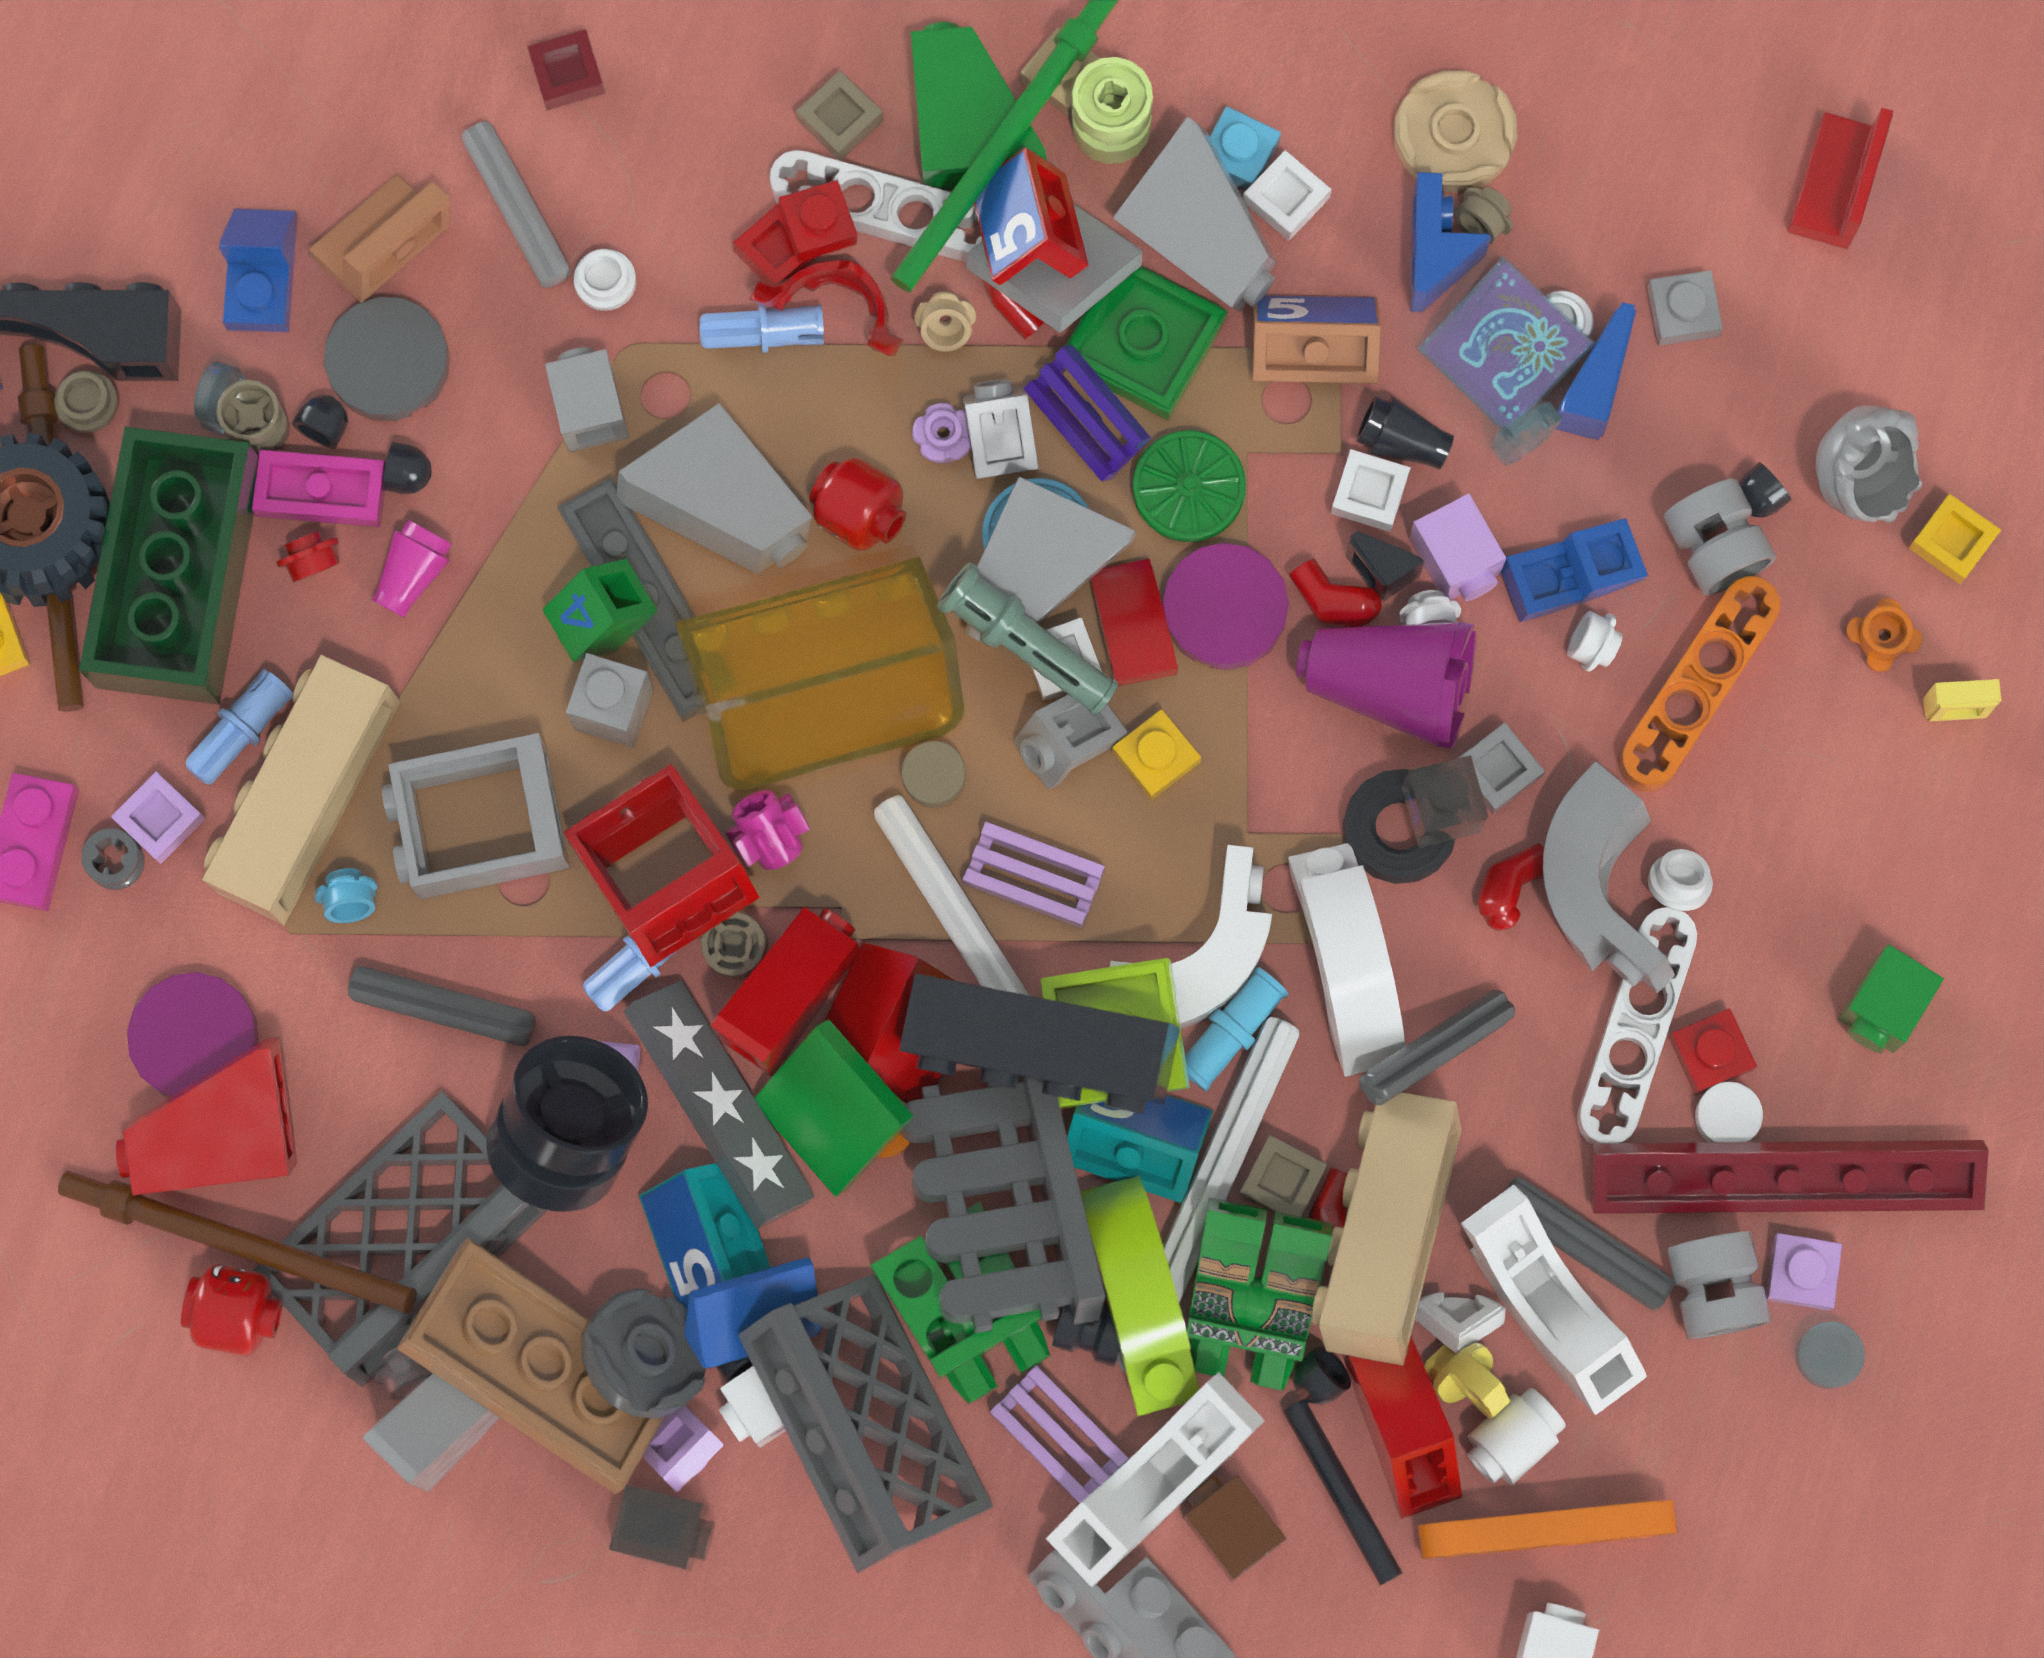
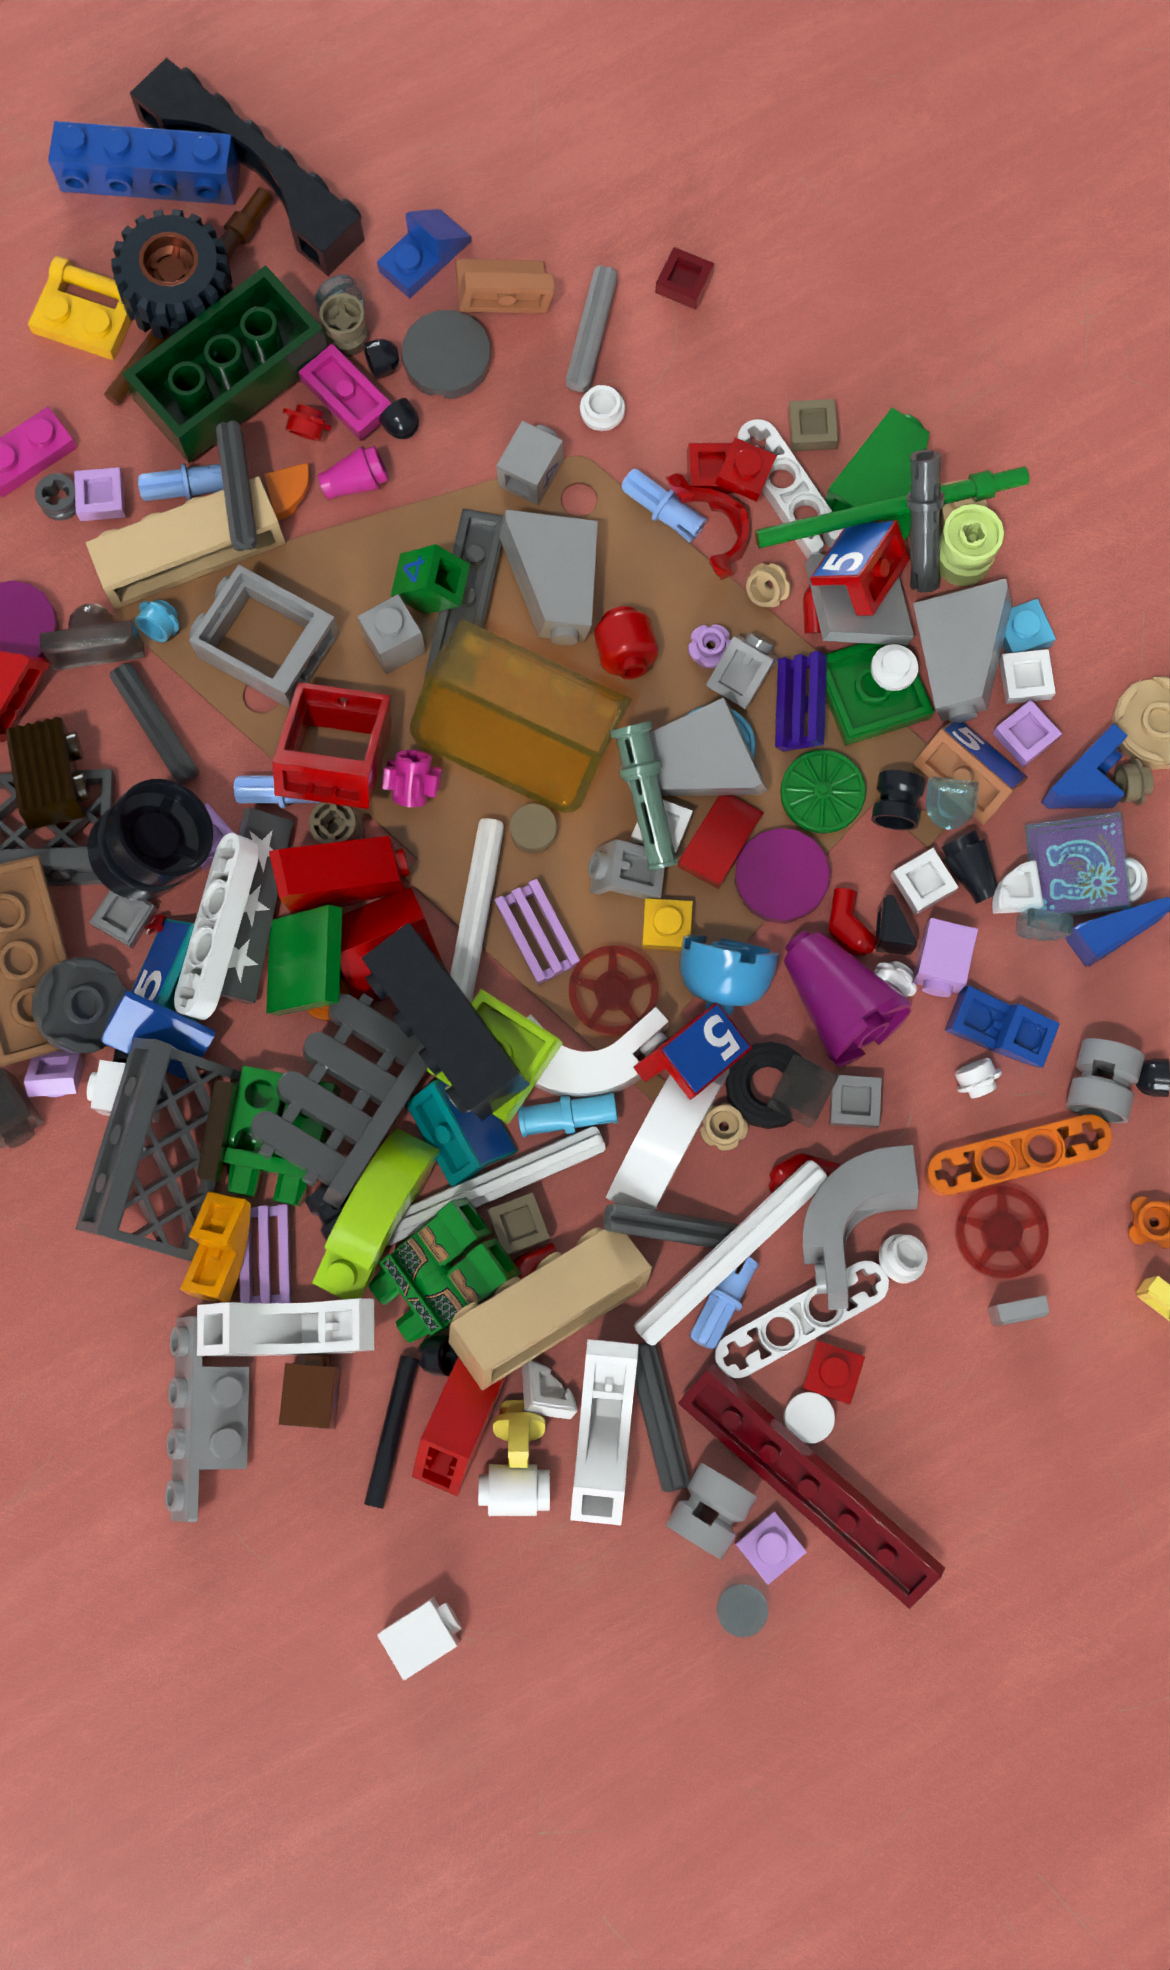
camera: 40 degrees right, 0 degrees up
(86, 401) = (268, 244): dark tan plate -> none
(297, 974) = (91, 640): none -> clear smoke tile
(311, 684) = (236, 486): none -> dark grey axle
(351, 640) = (287, 488): none -> orange tile
(386, 1151) = (46, 773): none -> dark brown brick
(596, 1232) = (123, 918): none -> light grey tile
(636, 1208) = (155, 924): none -> red piece
(708, 1153) = (216, 926): none -> white beam
(907, 1351) = (217, 1132): none -> dark brown tile
(1007, 1461) = (222, 1241): none -> light orange slope
(1041, 108) = (924, 506): none -> dark grey pin
(1151, 299) = (894, 667): none -> white plate
(1163, 867) = (612, 989): none -> clear red wheel
(1262, 749) = (726, 971): none -> dark azure cylinder
(1273, 430) = (898, 797): none -> black wheel
(1307, 853) = (697, 1052): none -> panel
(1326, 387) = (951, 801): none -> clear light blue tile
(1338, 253) = (1027, 733): none -> lavender plate
(1408, 897) = (727, 1139): none -> tan plate
(1472, 420) = (1018, 890): none -> white tile
(1515, 1021) = (730, 1253): none -> white axle
(1547, 1075) = (721, 1306): none -> light blue axle
(1547, 1529) = (485, 1560): orange beam -> none
(1750, 772) = (1002, 1232): none -> clear red wheel
(1835, 833) = (1019, 1311): none -> light grey tile
(1889, 1001) = (963, 1437): green brick -> none

